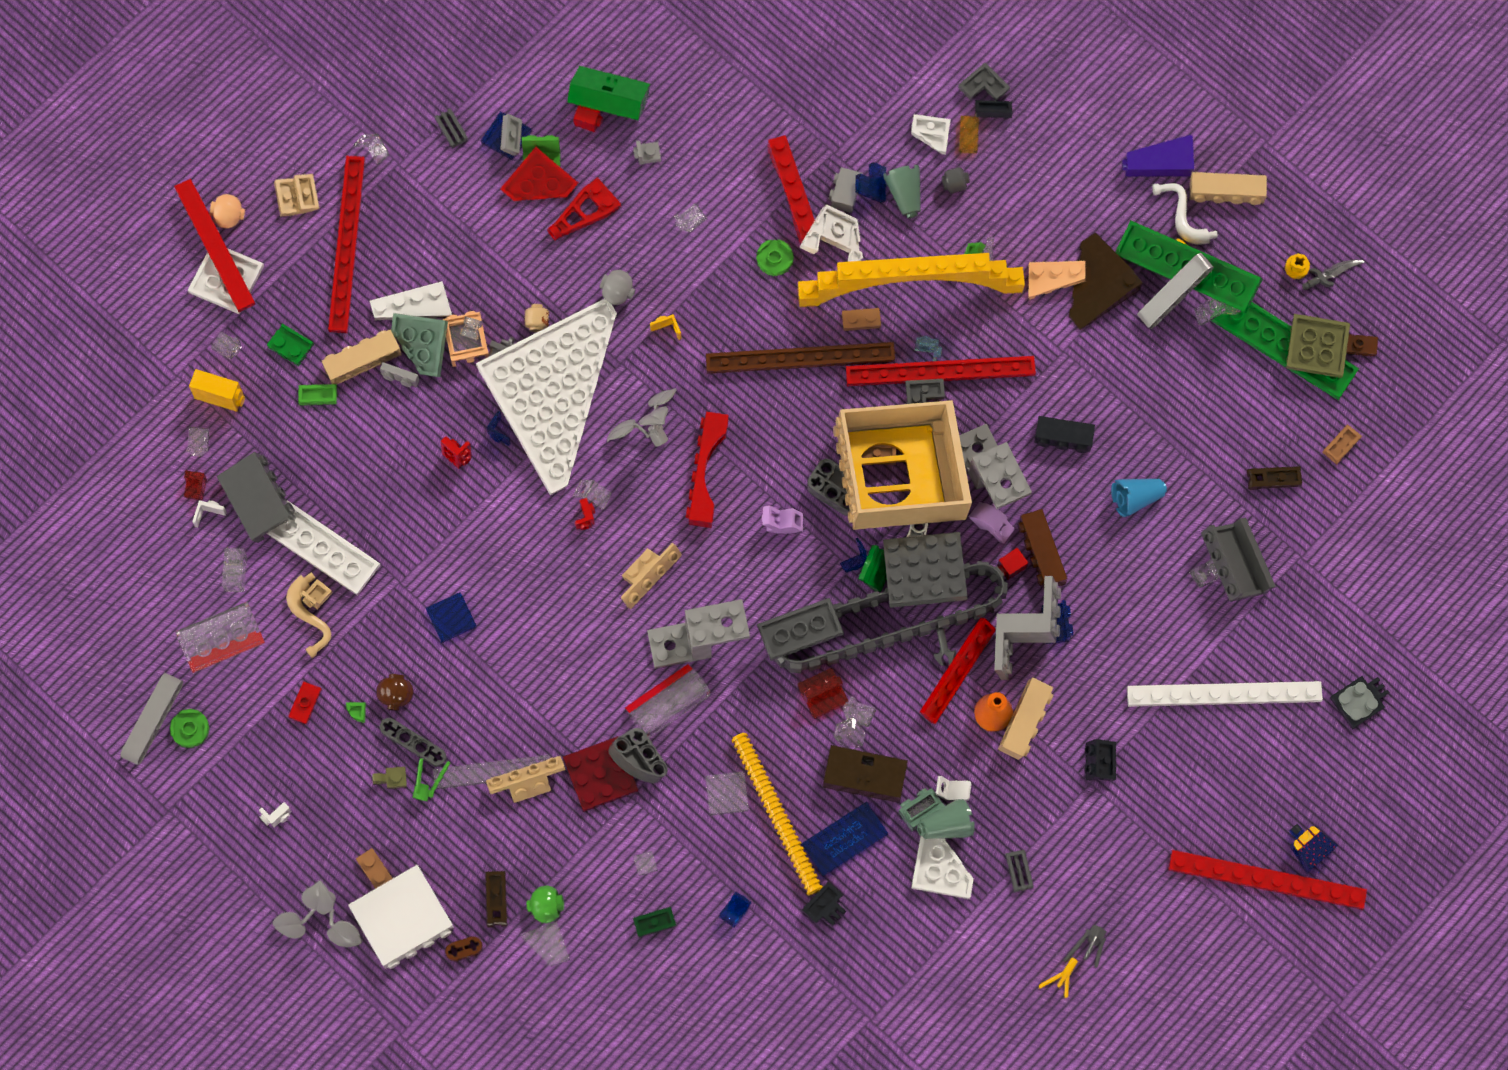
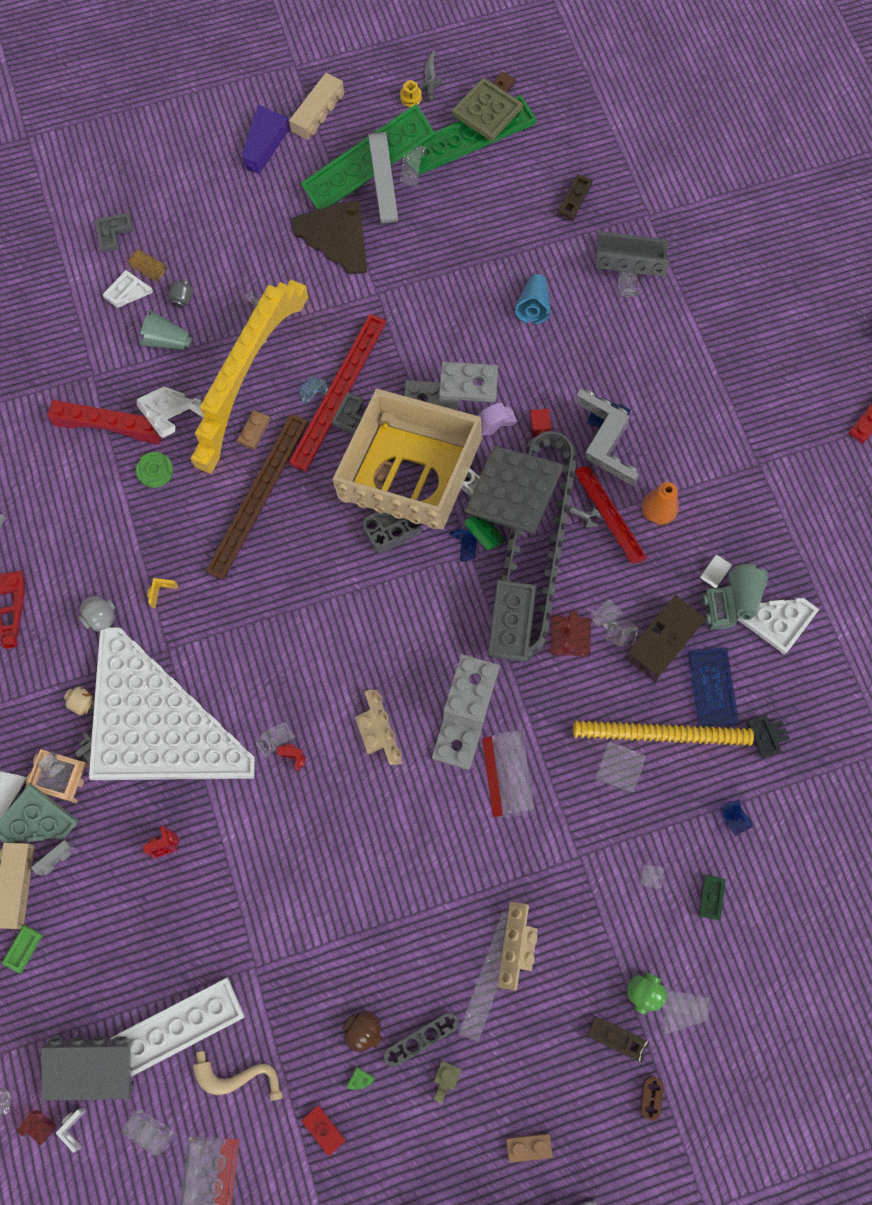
camera: 60 degrees left, 0 degrees up
(316, 595) = (221, 1059): tan bracket -> none
(401, 917) = (592, 1147): white brick -> none
(422, 791) = (474, 1057): bright green plant -> none
(451, 617) = (318, 935): clear blue tile -> none
(495, 435) = (166, 798): clear blue bracket -> none
(597, 776) = (544, 873): dark red plate -> none
(632, 757) = (546, 834): dark grey beam -> none
(655, 419) = (244, 648): light grey plant -> none
(690, 218) = (74, 518): clear bracket -> none
(714, 432) = (344, 648): red arch -> none
(782, 521) = (397, 586): lavender brick -> none
(844, 194) = (132, 380): light grey brick -> none
(874, 185) = (140, 357): clear blue tile -> none
(973, 248) = (248, 309): bright green tile -> none
(993, 109) = (138, 235): black tile -> none
(1022, 887) = (813, 566): dark grey tile -> none
(1025, 718) = (691, 489): tan brick -> none
(1042, 547) = (540, 393): reddish brown brick -> none
(1049, 276) = (310, 264): light nougat wing -> none
(1064, 434) = (450, 326): black brick -> none
(1100, 760) = (746, 445): black bracket -> none
(1186, 232) = (325, 153): white animal -> none
(1224, 693) = (734, 327): white plate -> none
(1342, 444) = (574, 138): medium nougat plate -> none
(1359, 701) = (790, 234): piece -> none

